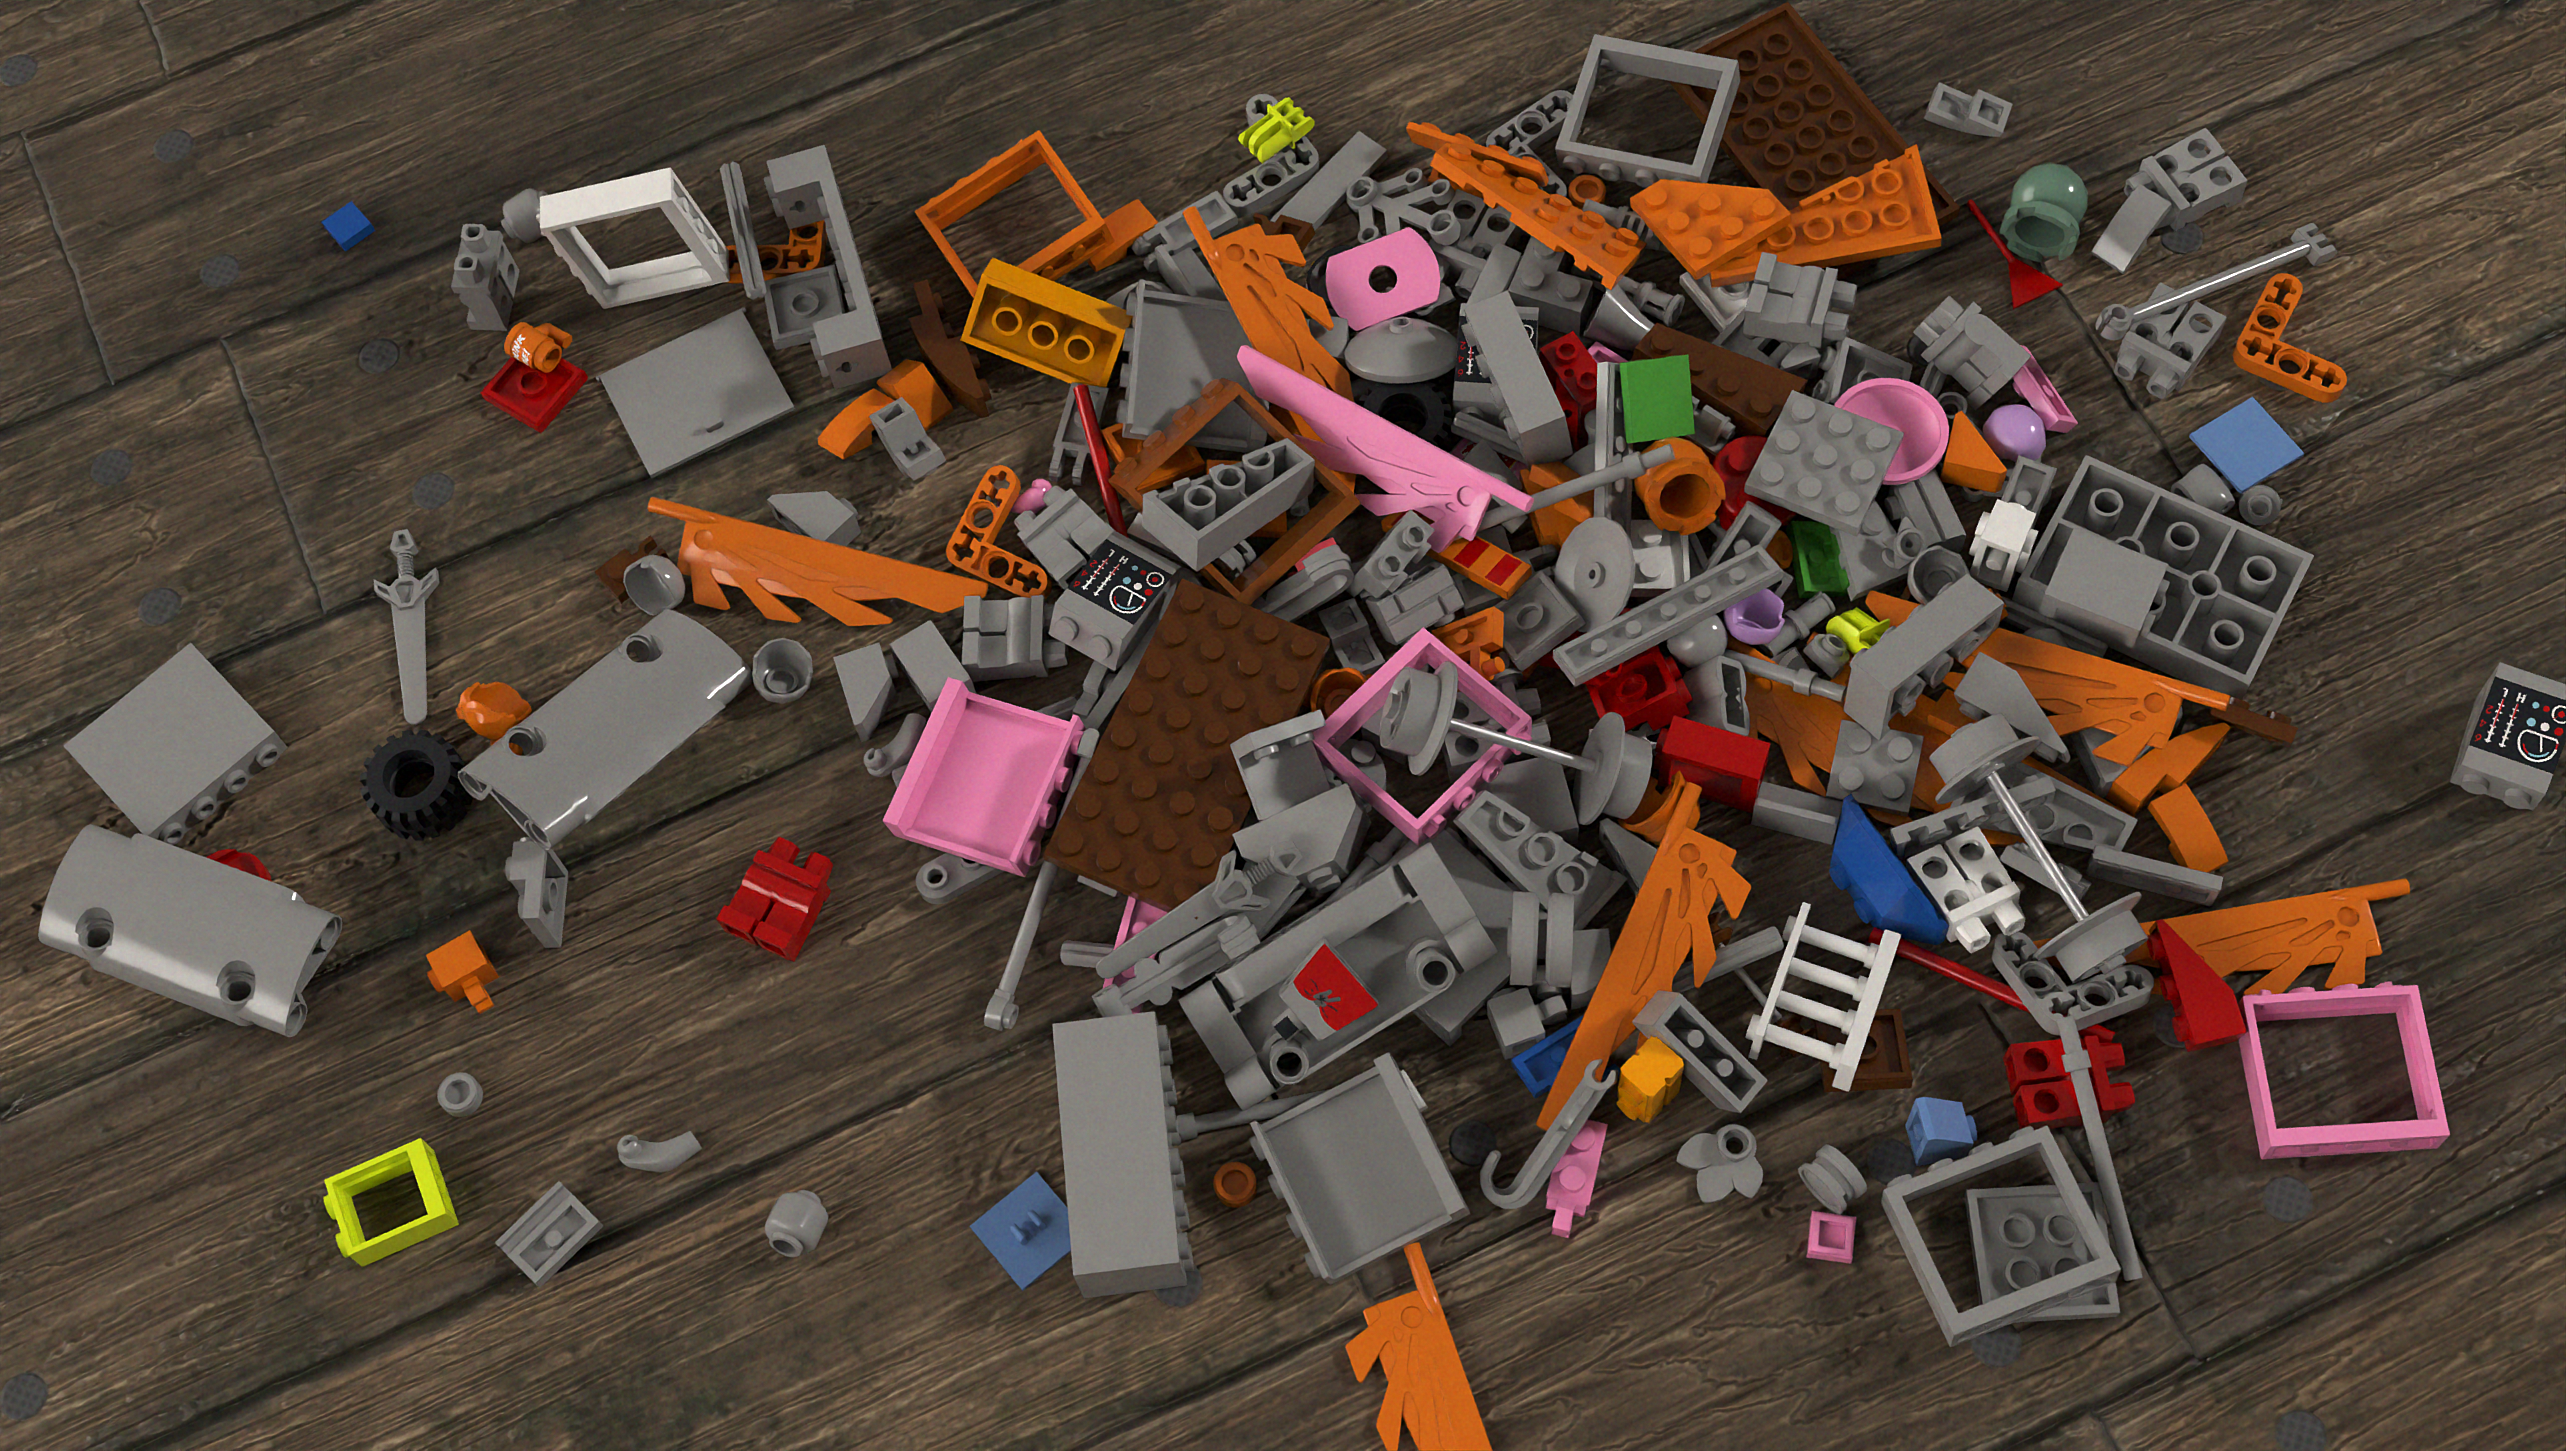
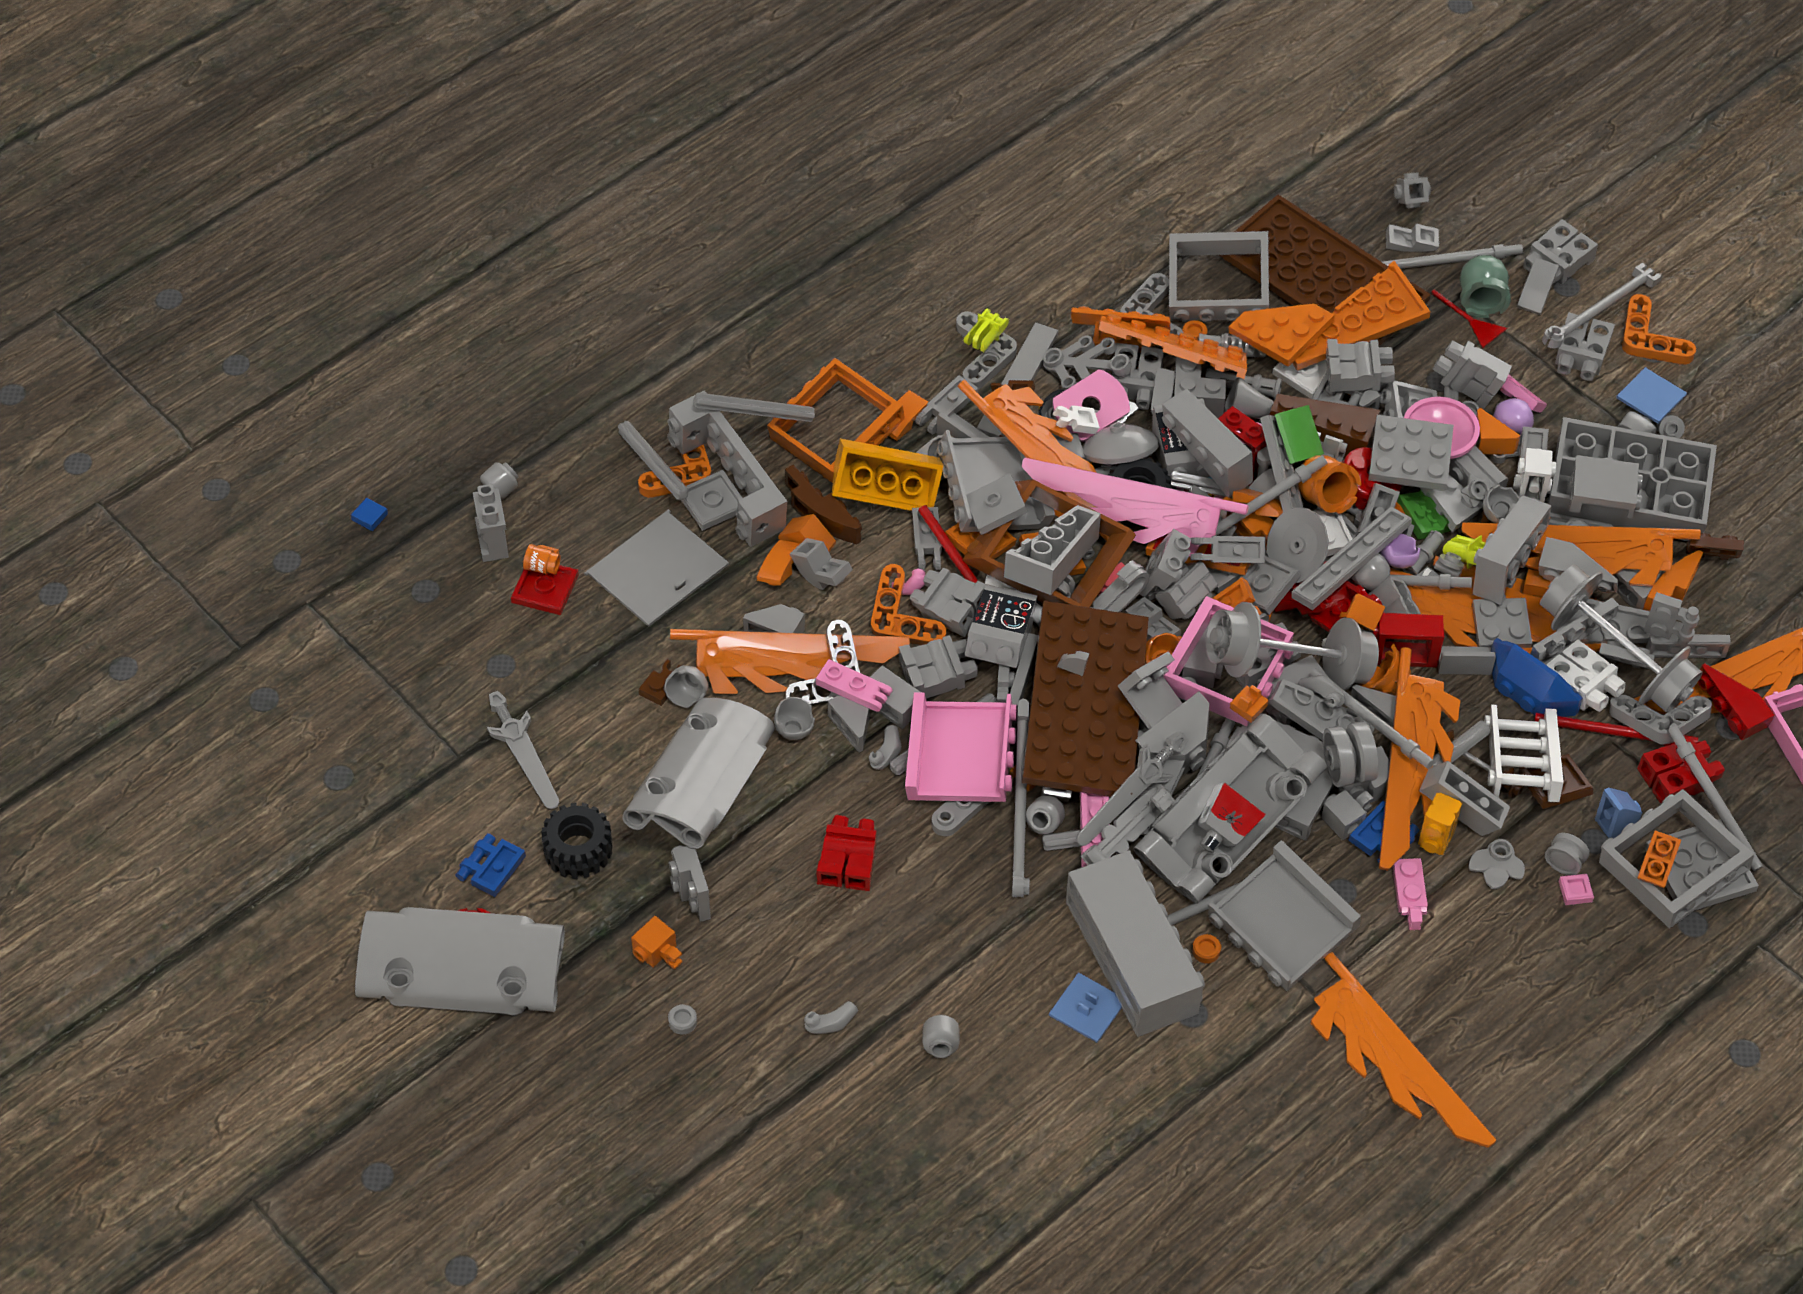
camera: 25 degrees left, 10 degrees down
(176, 747) = (397, 853): light grey panel -> none
(302, 796) = (496, 869): none -> blue plate
(342, 1186) = (672, 1059): neon yellow window -> none
(493, 710) = (609, 787): orange hair -> none
(549, 1234) = (780, 1083): light grey plate -> none
(646, 280) = (608, 499): white window -> none
(862, 626) = (831, 640): none -> beam
(873, 642) = (853, 685): none -> bright pink hinge
(888, 184) = (754, 407): none -> light grey axle
(1074, 912) = (1045, 814): none -> light grey head
(1172, 409) = (996, 504): none -> light grey plate
(1183, 692) = (1074, 662): none -> light grey tile
(1353, 297) = (1080, 418): none -> white plate
(1418, 819) = (1249, 703): none -> orange tile
(1492, 559) = (1232, 549): none -> light grey hinge
(1550, 816) = (1326, 688): none -> light grey arm
(1551, 1146) = (1395, 874): light grey piece -> none
(1639, 946) = (1408, 747): none -> light grey bar
(1648, 711) = (1364, 612): none -> orange panel
(1963, 1238) = (1659, 859): none -> orange slope
(1999, 47) = (1420, 192): none -> light grey brick
(2090, 158) = (1497, 251): none -> light grey bar
(2123, 832) = (1663, 618): none -> light grey plate
(2189, 830) = (1708, 622): orange slope -> none

